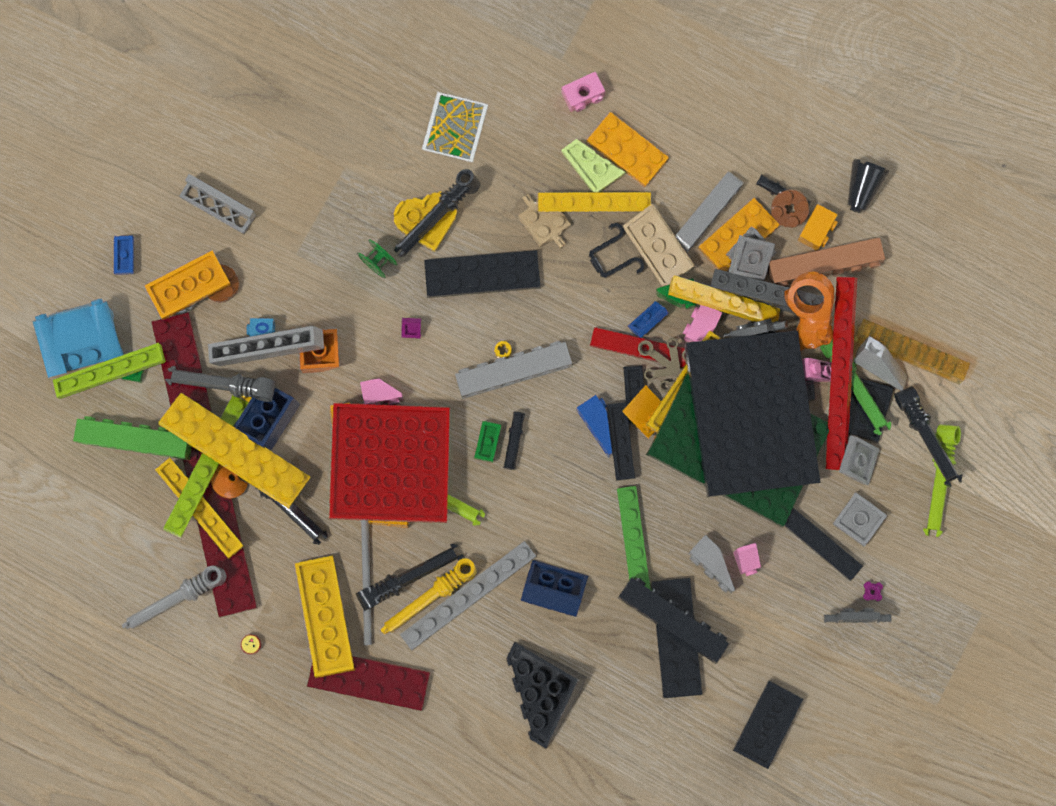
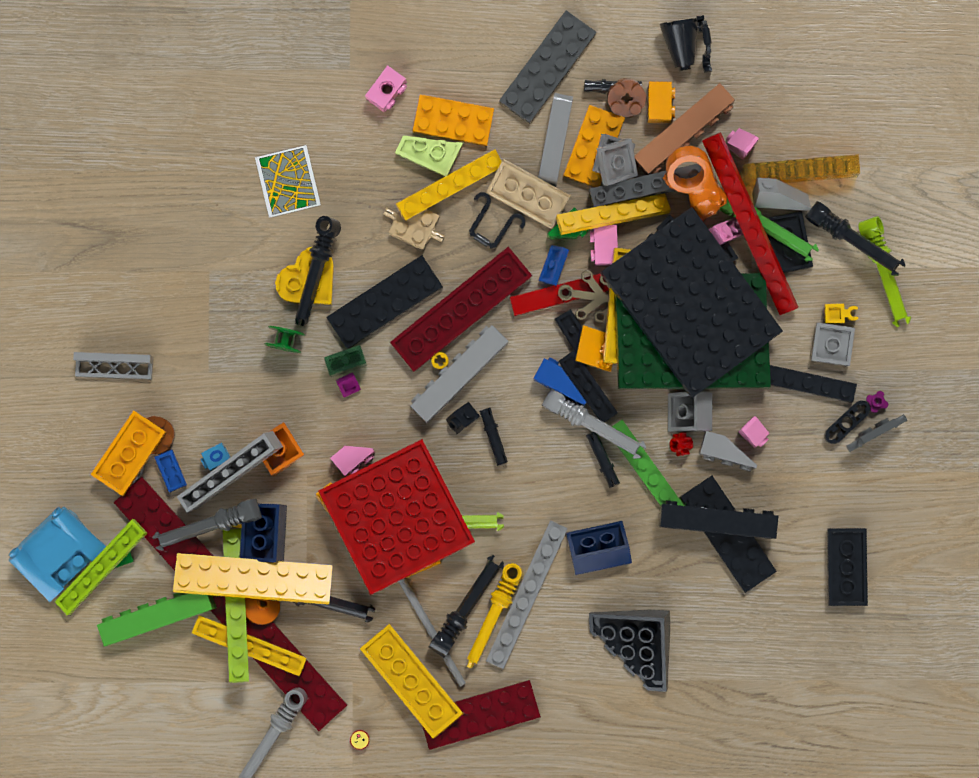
camera: 20 degrees left, 5 degrees up
(123, 255) = (55, 456): blue plate -> none
(216, 321) = (170, 471): none -> blue plate
(420, 306) = (345, 361): none -> clear green brick
(487, 441) = (470, 450): green plate -> none
(495, 409) = (462, 417): none -> black bracket
(546, 315) = (461, 309): none -> dark red plate
(599, 462) = (579, 415): none -> light grey piece
(600, 512) = (603, 460): none -> black pin
(676, 535) = (681, 444): none -> red gear
(699, 511) = (689, 413): none -> light grey slope
(735, 146) = (547, 67): none -> dark grey plate
(756, 328) = (651, 226): dark grey plate -> none
(820, 594) = (833, 428): none -> black beam
(859, 460) = (805, 292): light grey plate -> none
(871, 300) = (741, 142): none -> bright pink slope
(877, 494) = (836, 313): none -> yellow plate
(889, 184) = (703, 28): none -> black piece

